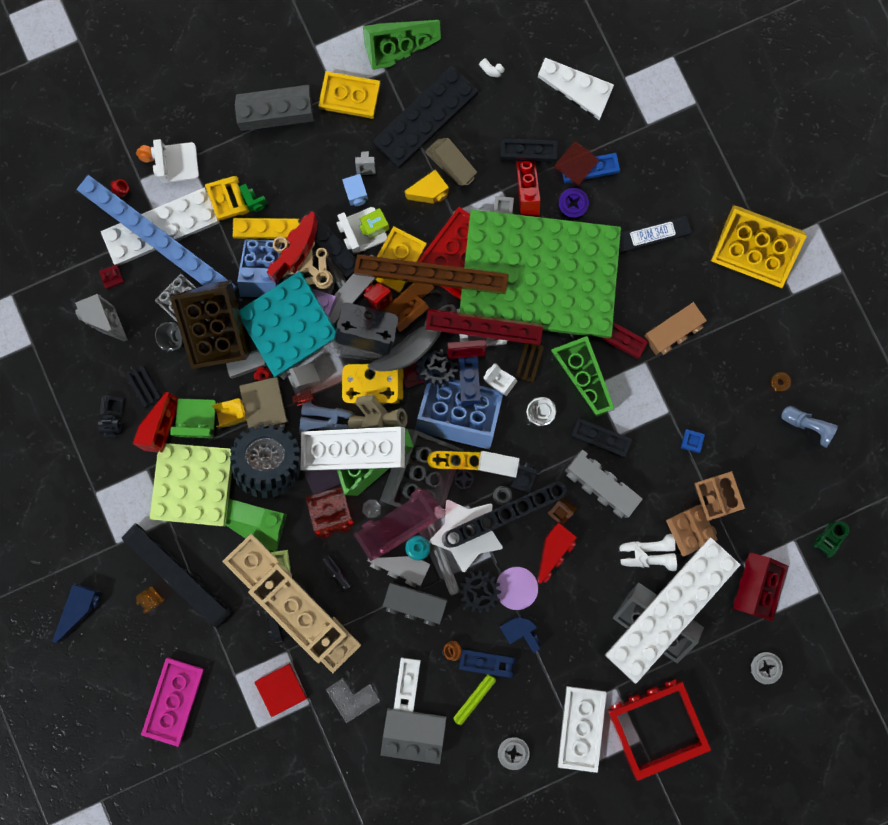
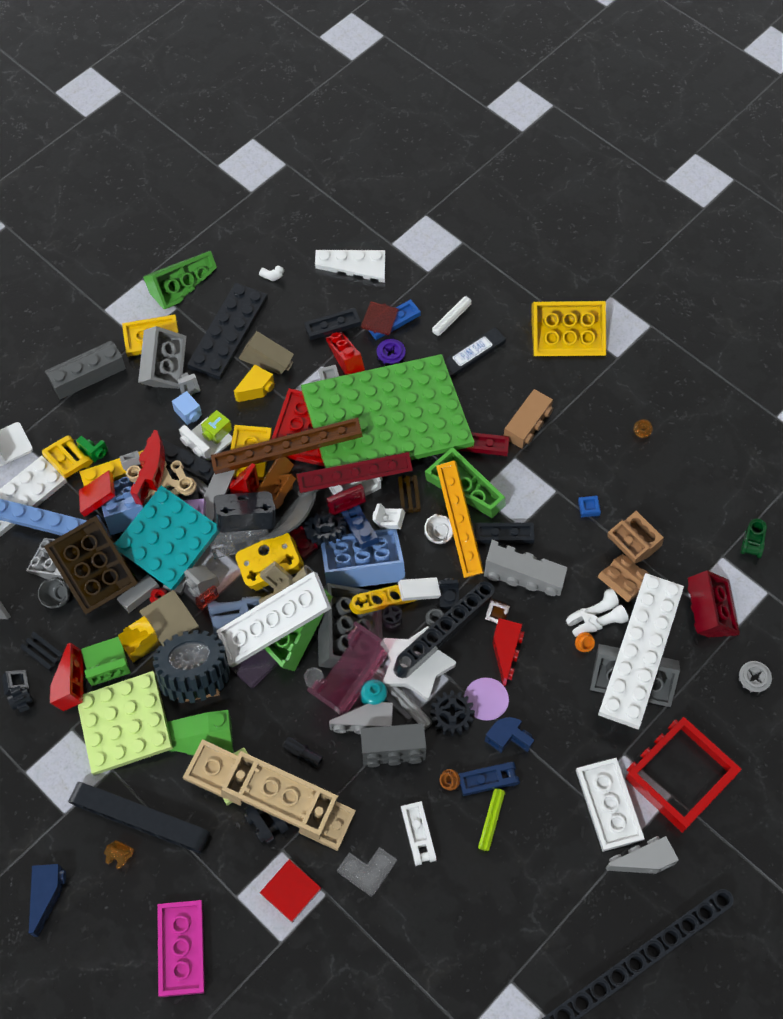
camera: 25 degrees left, 20 degrees down
(240, 250) = (96, 493): none -> tile
(281, 228) = (130, 460): none -> light grey tile
(329, 512) = (274, 695): clear red plate -> none
(349, 127) = (161, 358): none -> light grey slope
(413, 736) = (446, 876): dark grey slope -> none
(519, 760) = (558, 848): light grey gear -> none
(563, 411) = (460, 519): none -> light orange plate
(598, 791) = (649, 859): none -> light grey slope
(627, 574) = (584, 642): none -> orange plate
(649, 185) = (451, 316): none -> white axle
(801, 419) = (677, 450): sand blue piece -> none

